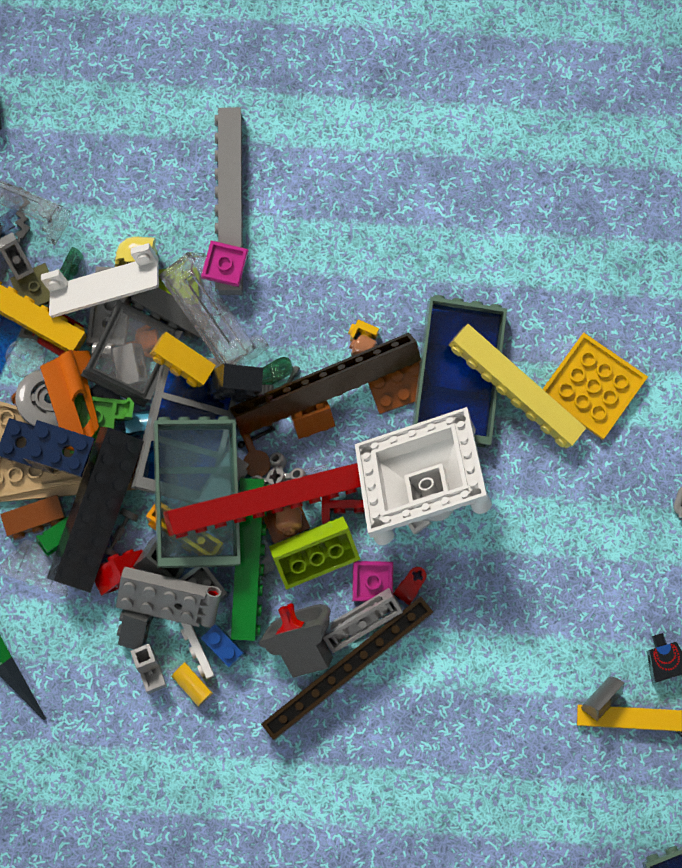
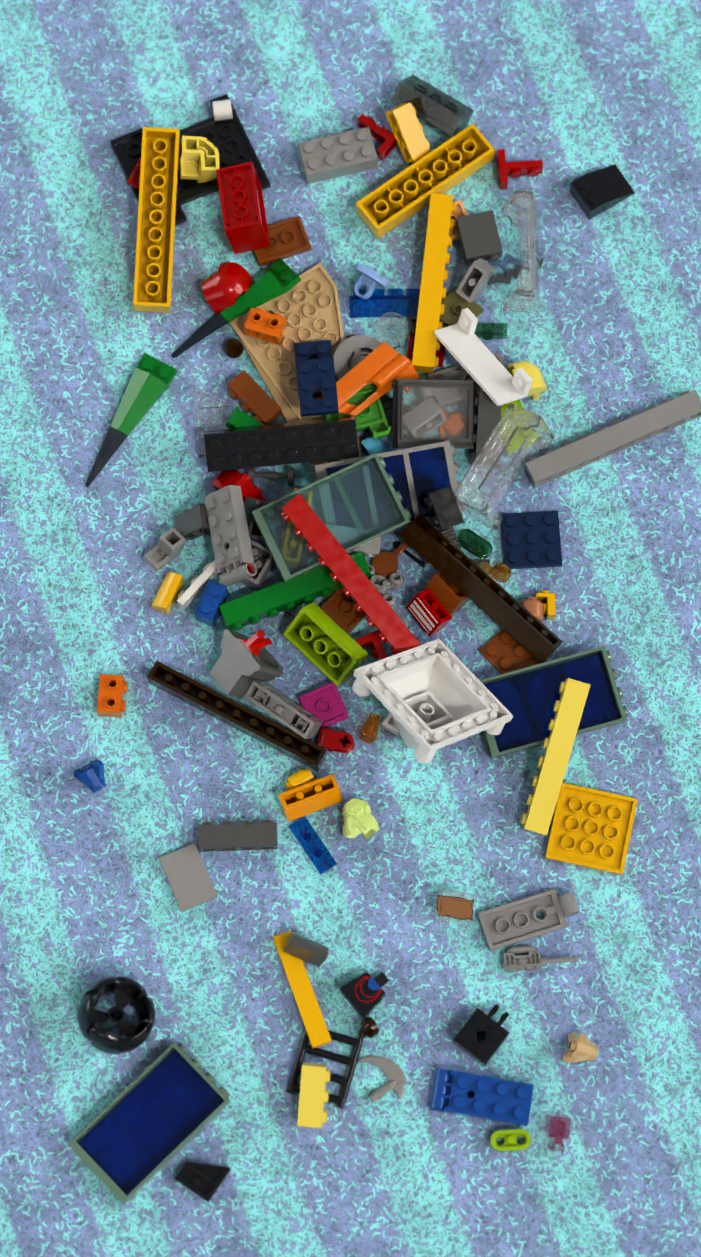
camera: 65 degrees right, 5 degrees down
(182, 360) = (442, 455): yellow brick -> none
(224, 263) = (551, 456): dark pink plate -> none
(273, 783) = (111, 695): none -> orange brick
(289, 520) = (344, 610): nougat head -> none
(293, 318) = (531, 540): none -> dark blue plate
(312, 361) = (499, 572): none -> clear orange plate
(324, 442) = (429, 612): none -> red brick
(345, 835) = (92, 775): none -> blue rock
(414, 547) = (370, 729): none -> clear orange cone
(436, 635) = (299, 778): none -> yellow brick
(458, 632) = (310, 798): none -> light orange brick
(466, 718) = (237, 836): none -> dark grey brick
(485, 782) = (188, 877): none -> light grey tile
(497, 595) = (358, 819): none -> yellowish green hair
(502, 649) = (312, 845): none -> clear blue tile
(620, 541) = (455, 908): none -> slope
(654, 489) = (518, 920): none -> light grey hinge

